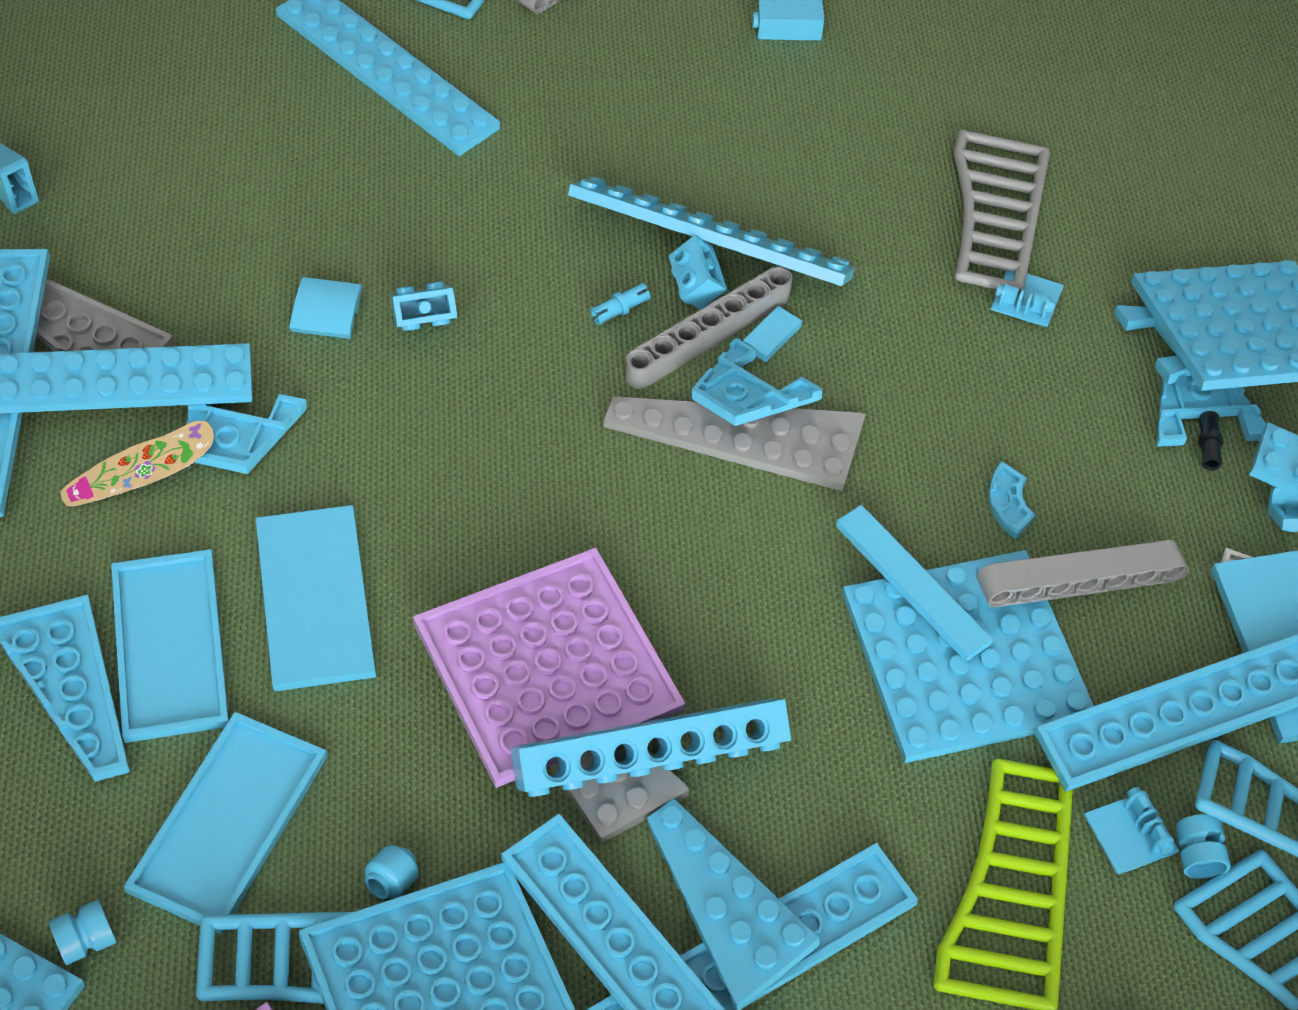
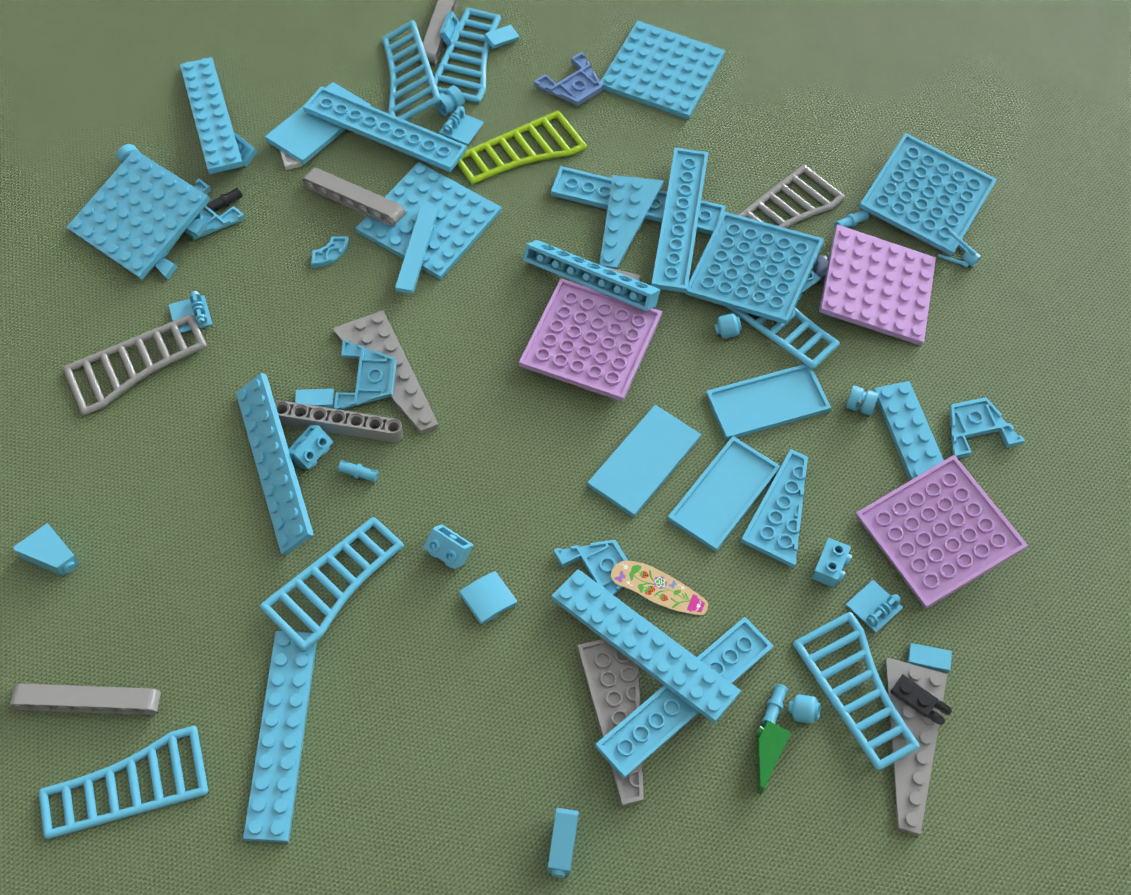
camera: 130 degrees left, 5 degrees up
(479, 209) = (313, 569): none -> medium azure bar

